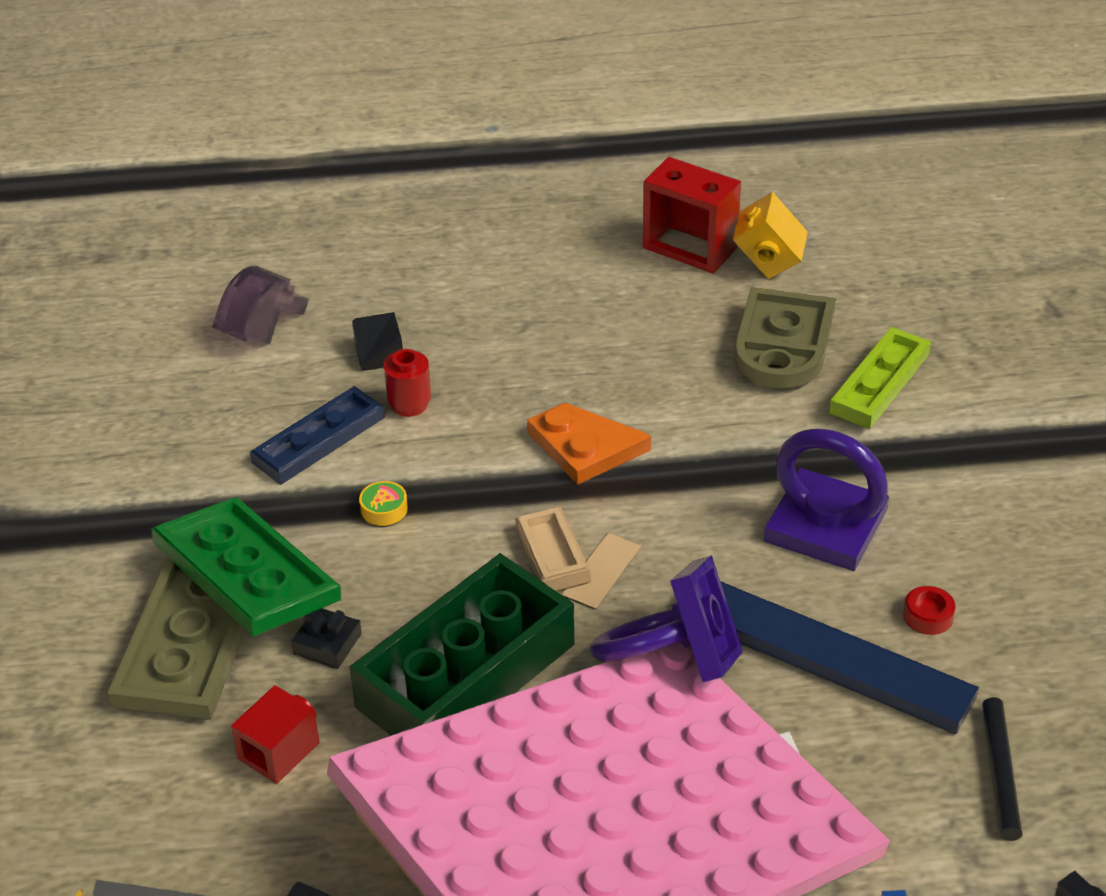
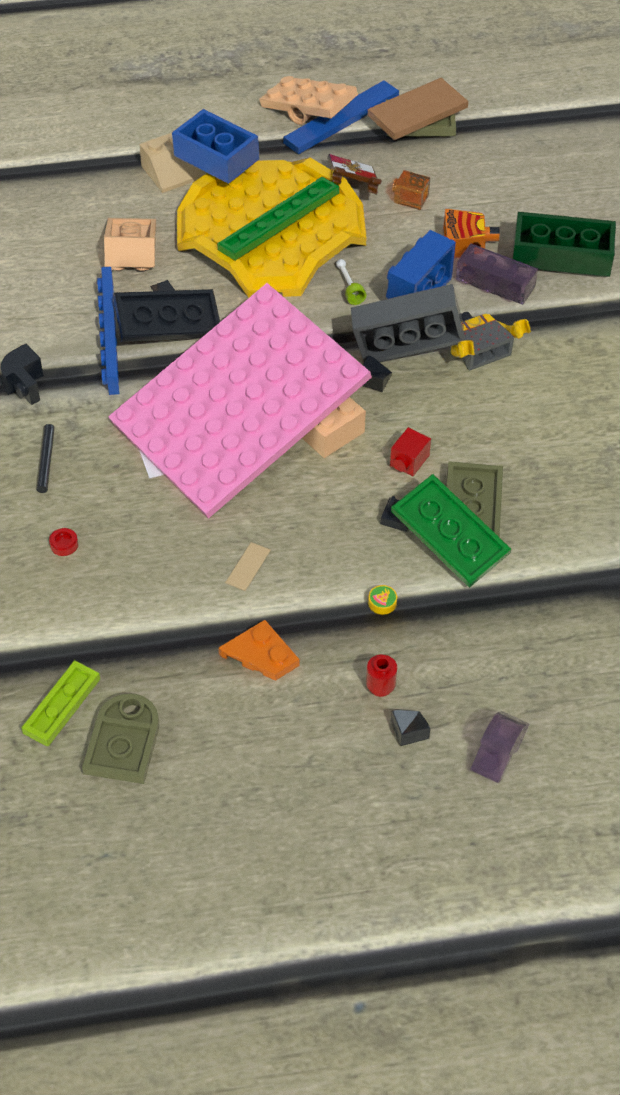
camera: 175 degrees right, 10 degrees up
(317, 435) = (435, 652): dark blue tile -> none
(464, 649) = (318, 485): dark green brick -> none
(552, 549) = (277, 571): tan tile -> none
(695, 203) = (174, 842): red piece -> none
(696, 620) = (193, 489): dark purple tile -> none
(770, 235) = (123, 821): yellow head -> none
(823, 513) = (112, 593): dark purple tile -> none
(850, 661) = (127, 515): dark blue tile -> none

